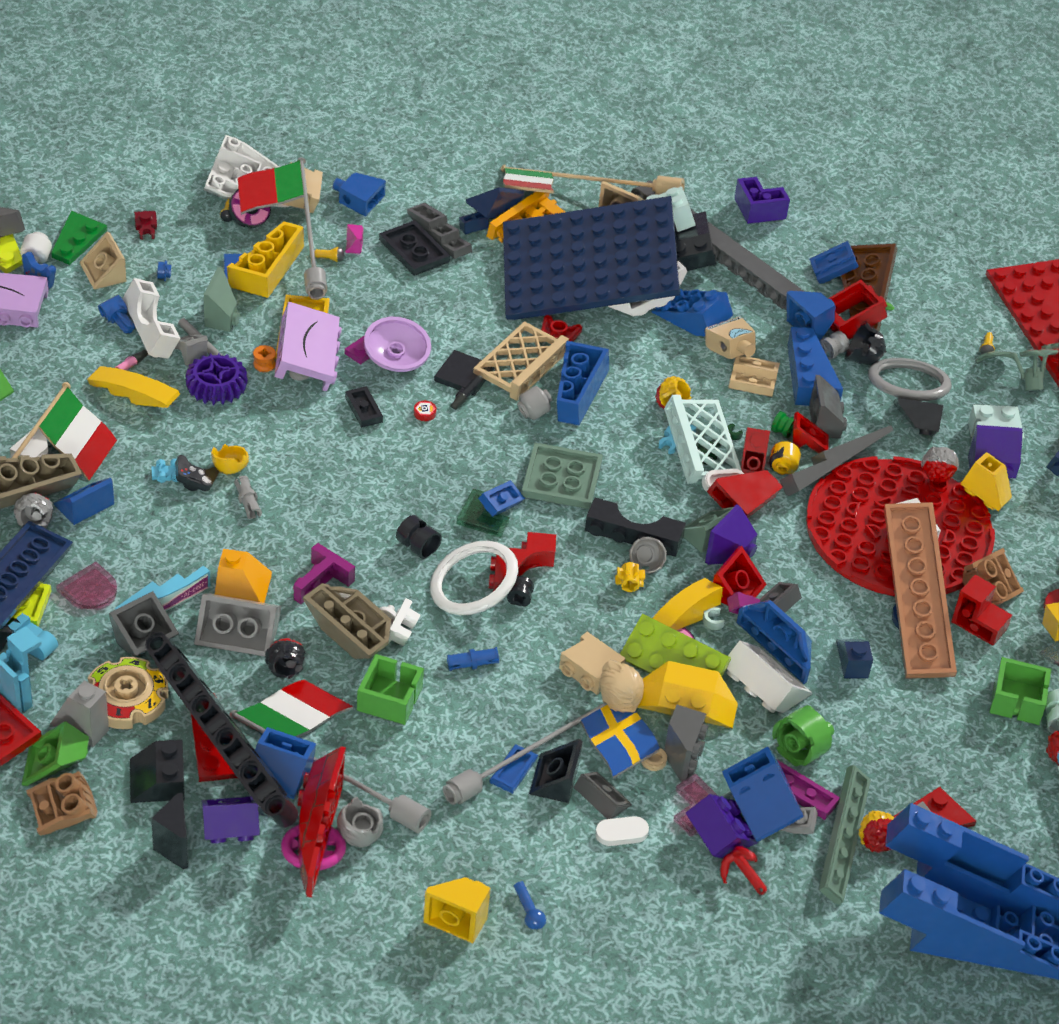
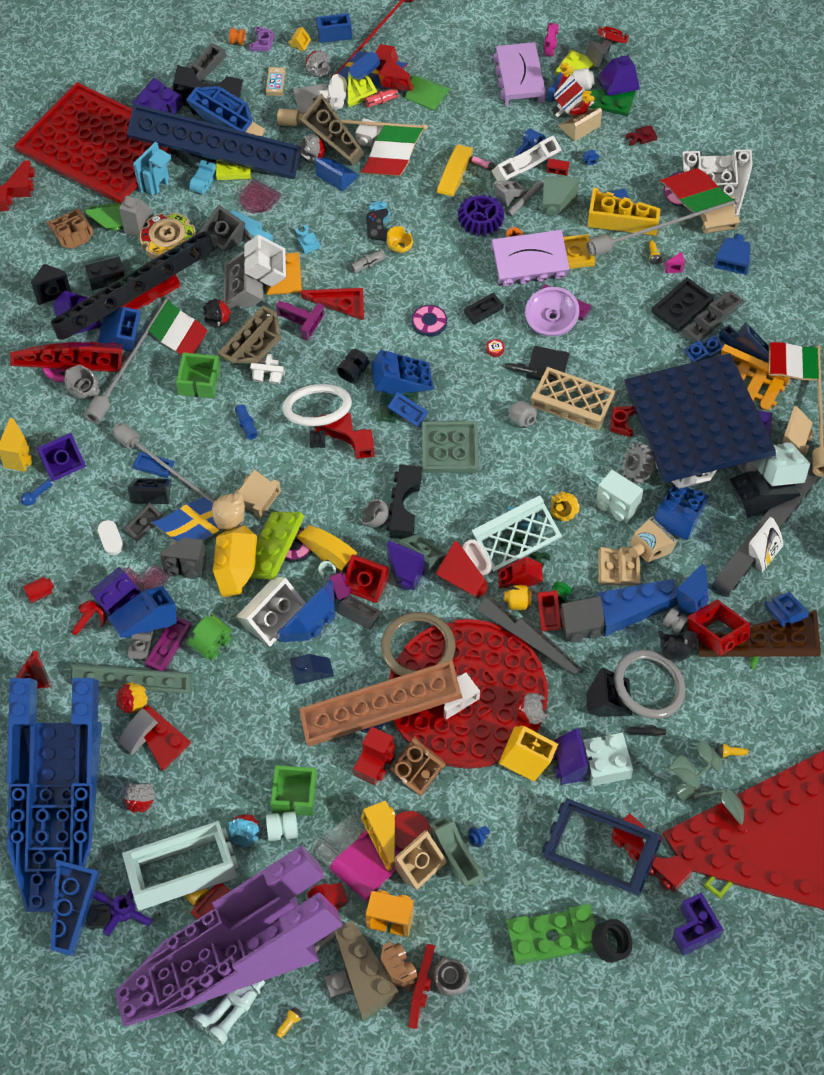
camera: 85 degrees right, 15 degrees up
(50, 214) = (619, 76): none -> dark purple slope
(71, 254) = (571, 95): none -> torso
(167, 299) = (558, 167): none -> red piece
(189, 550) = (307, 241): none -> medium azure plate
(233, 577) = (265, 260): none -> white piece
(305, 531) = (345, 300): none -> red wing
(363, 459) = (429, 320): none -> tile
(444, 496) = (400, 373): none -> blue slope
(482, 248) = (704, 350): none -> blue slope
(482, 862) = (61, 457): none -> dark purple slope
(580, 380) = (554, 439): blue wedge -> none
(630, 577) = (350, 505): yellow gear -> none
(637, 333) = (638, 463): none -> light grey gear
(674, 345) = (619, 496): none -> light aqua brick
(694, 918) = (38, 589): none -> red brick
(755, 252) = (766, 544): none -> white slope
(835, 576) = (410, 617): none -> dark tan wedge
(840, 926) = (34, 669): none -> red wing
(959, 395) = (648, 730): none -> black piece
(1020, 838) = (138, 797): none -> light grey piece

